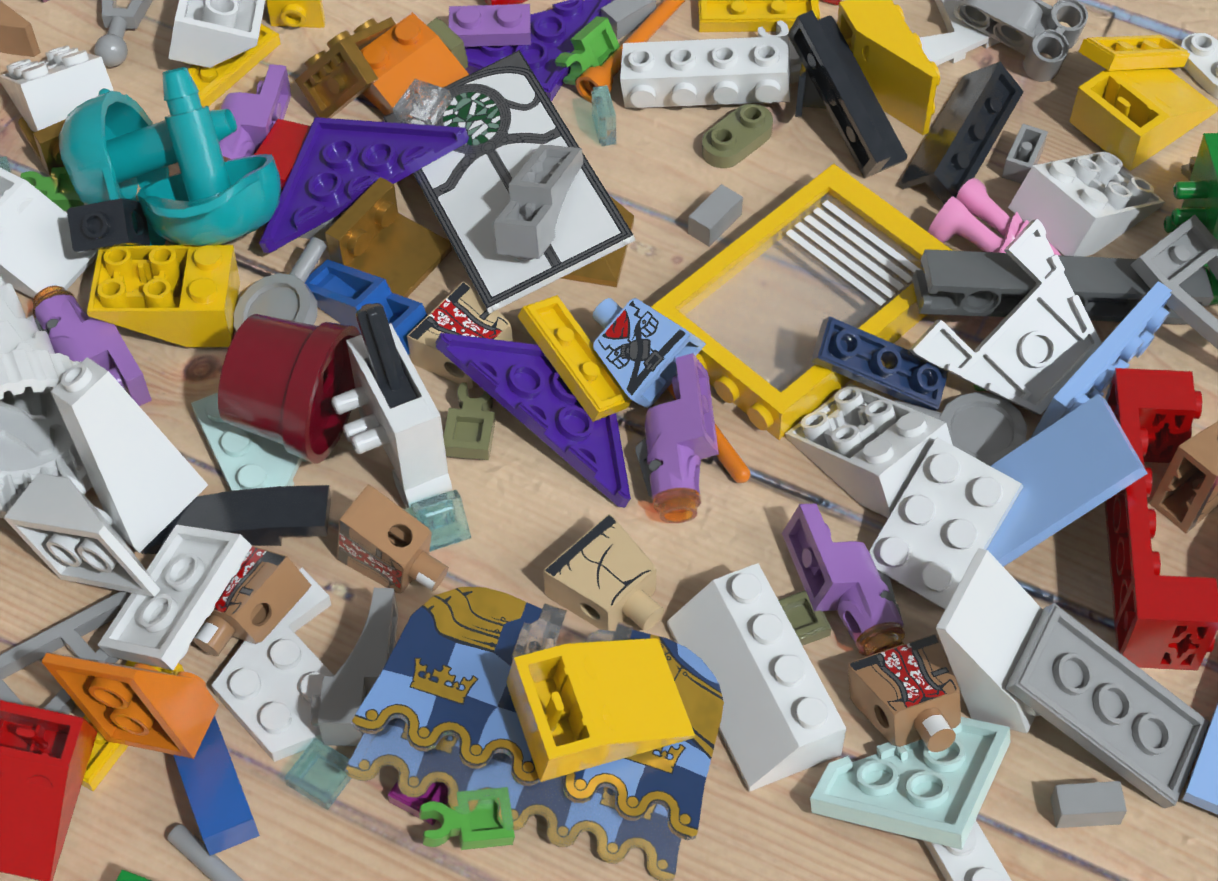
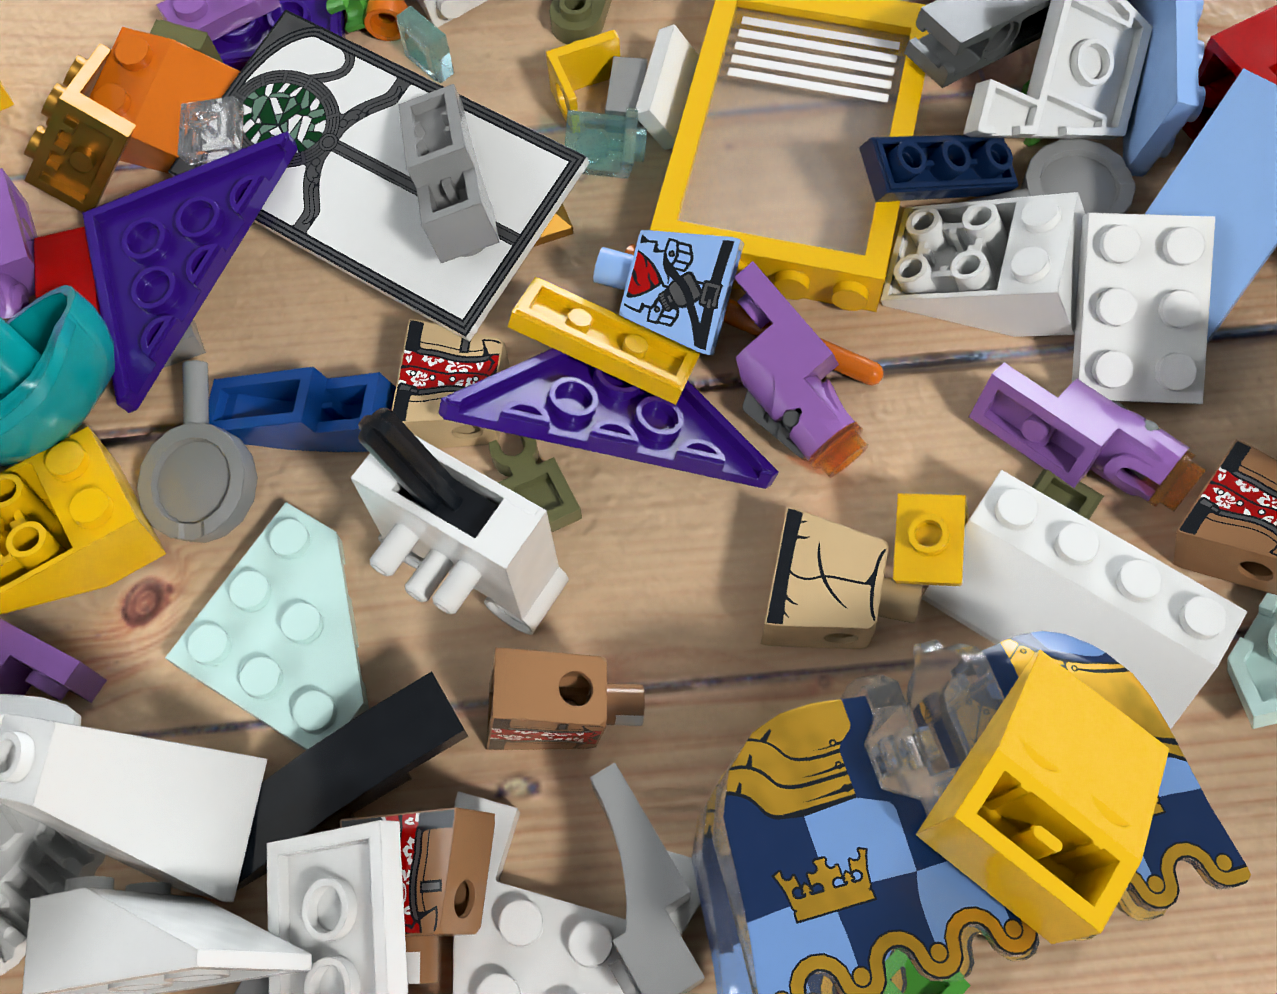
camera: 30 degrees left, 10 degrees up
(283, 382) = (292, 569): dark red piece -> none
(384, 242) = (274, 322): pearl gold bracket -> none
(444, 518) = (586, 623): clear light blue tile -> none
(671, 237) = (607, 141): none -> clear light blue bracket
(682, 579) = (930, 539): none -> yellow bracket
(692, 179) = (580, 66): none -> yellow bracket
(741, 216) = (667, 85): none -> white tile

